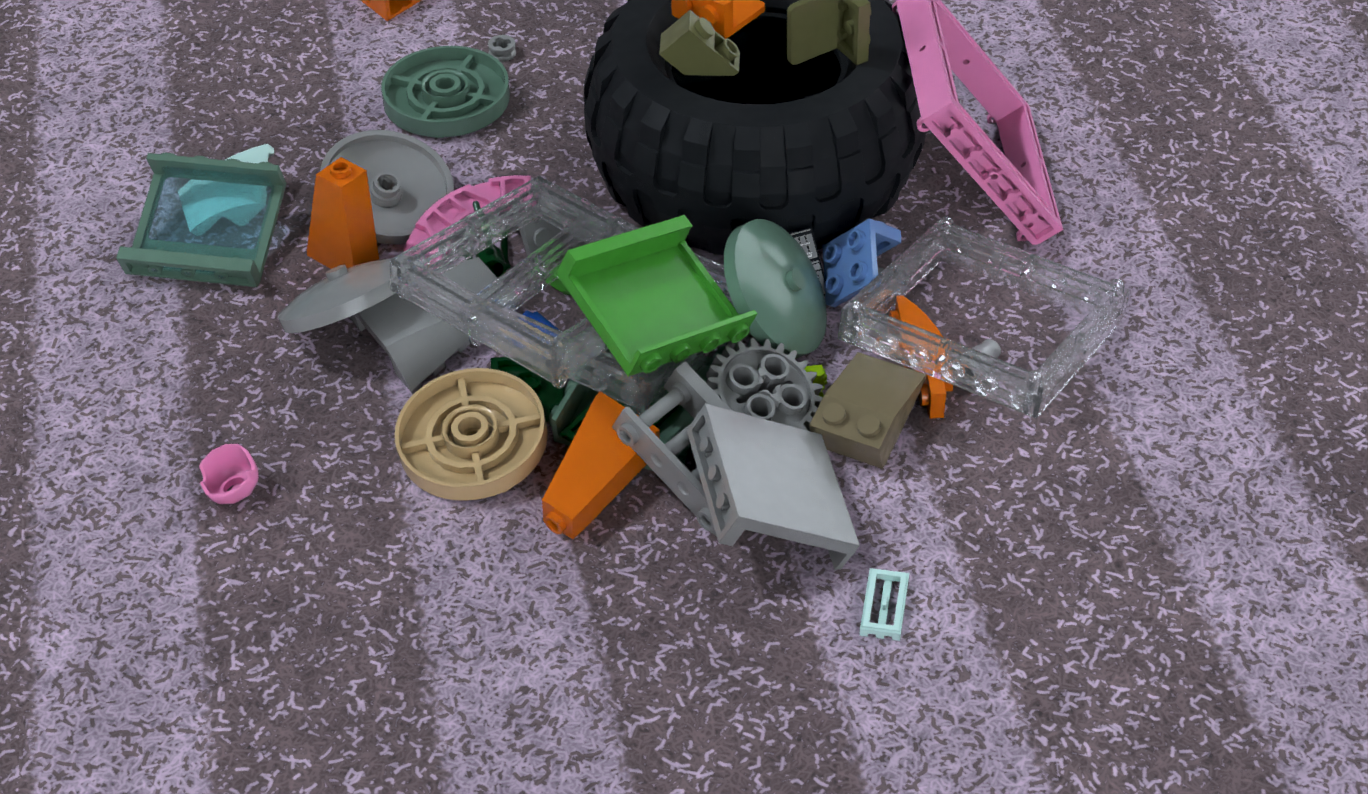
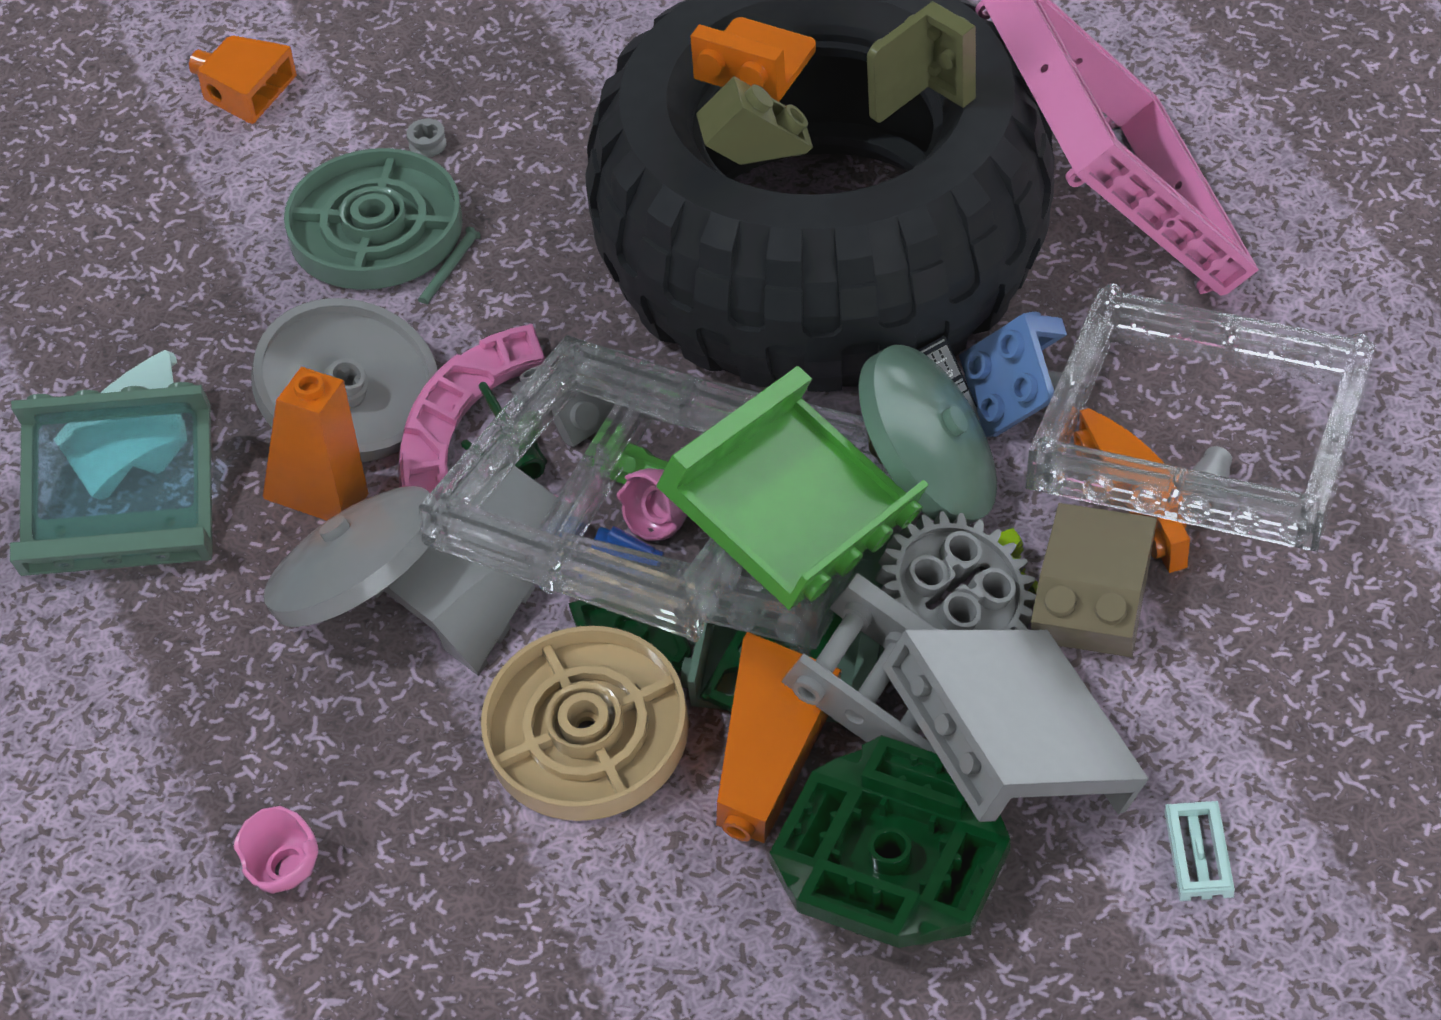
camera: 10 degrees left, 5 degrees up
(488, 131) = (449, 265): none -> sand green piece
(563, 306) = (649, 507): none -> bright pink hair
(654, 553) = (879, 806): none -> dark green piece

